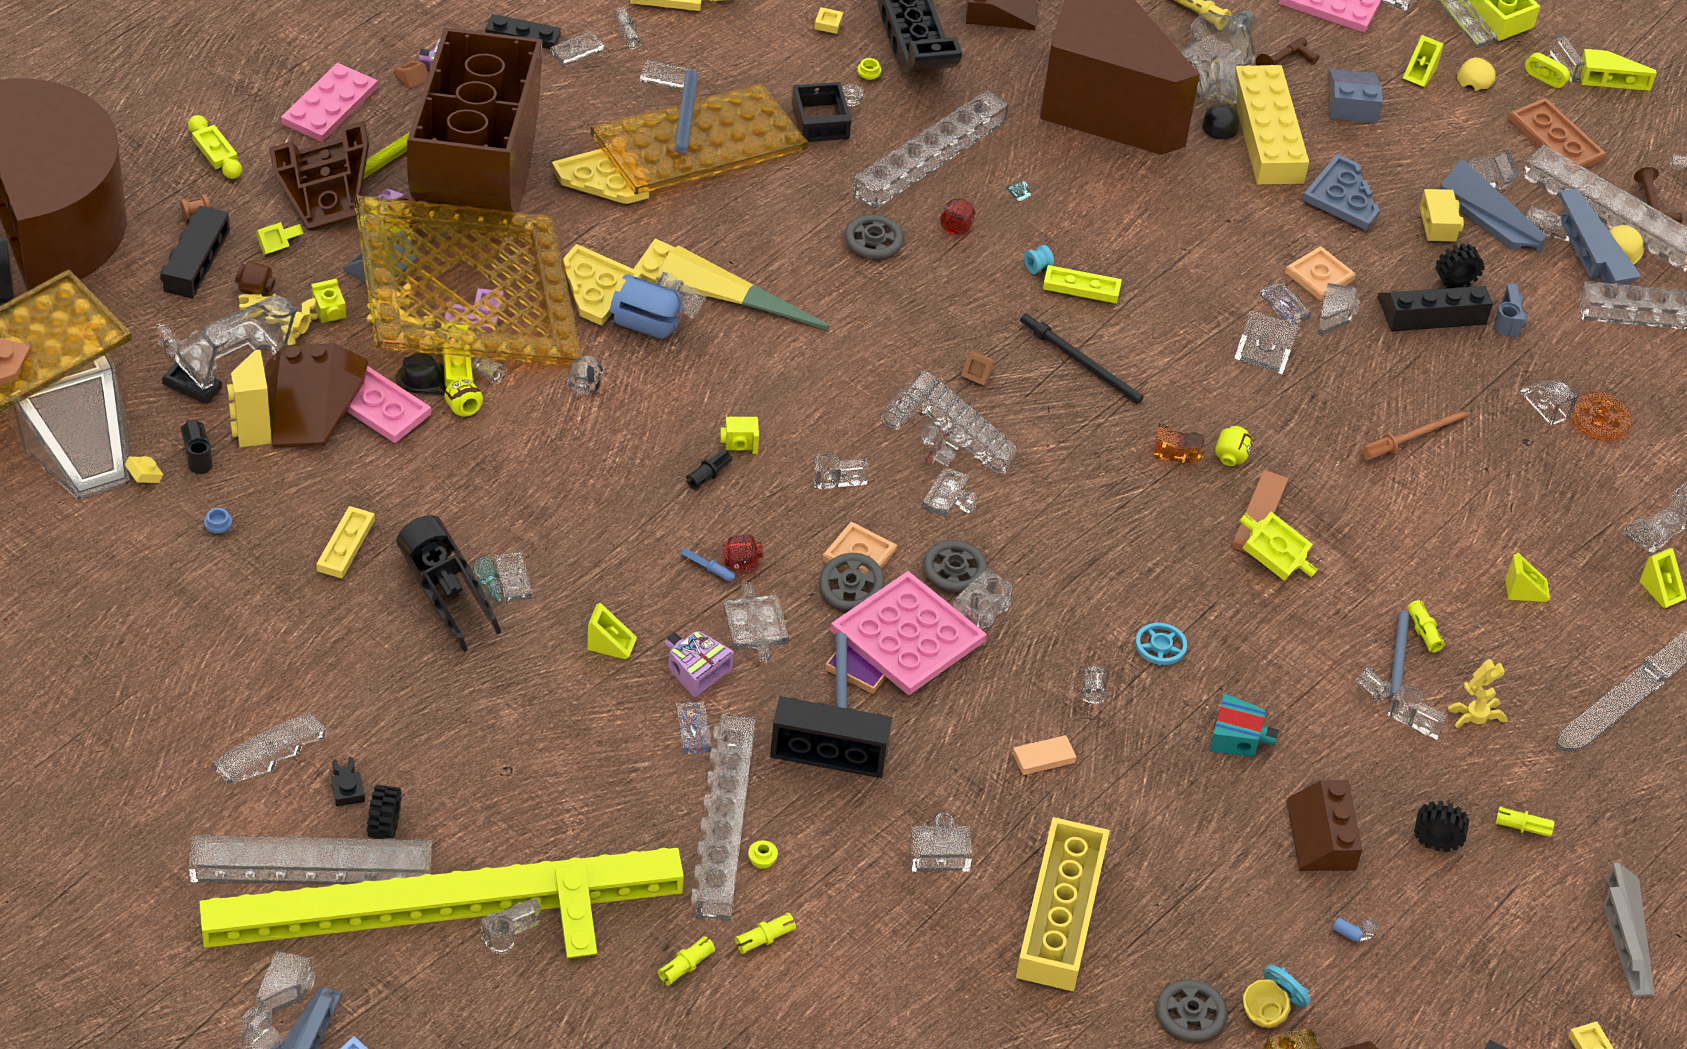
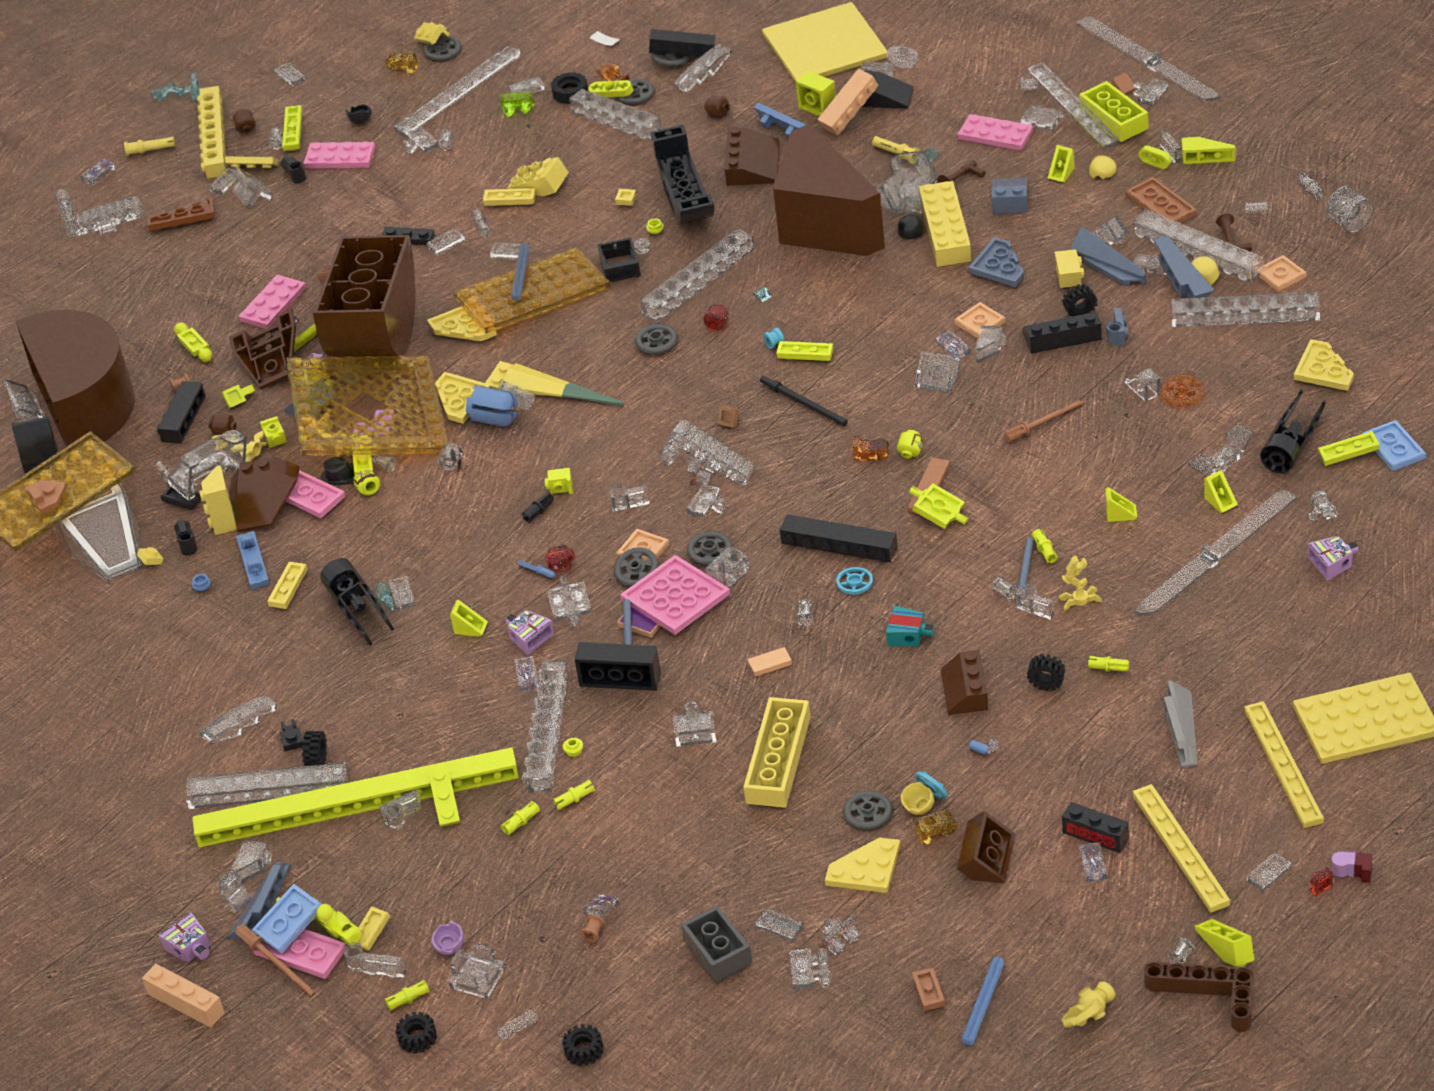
camera: 10 degrees right, 5 degrees down
(294, 495) = (252, 560): none -> medium blue hinge
(1138, 576) = (838, 538): none -> black brick

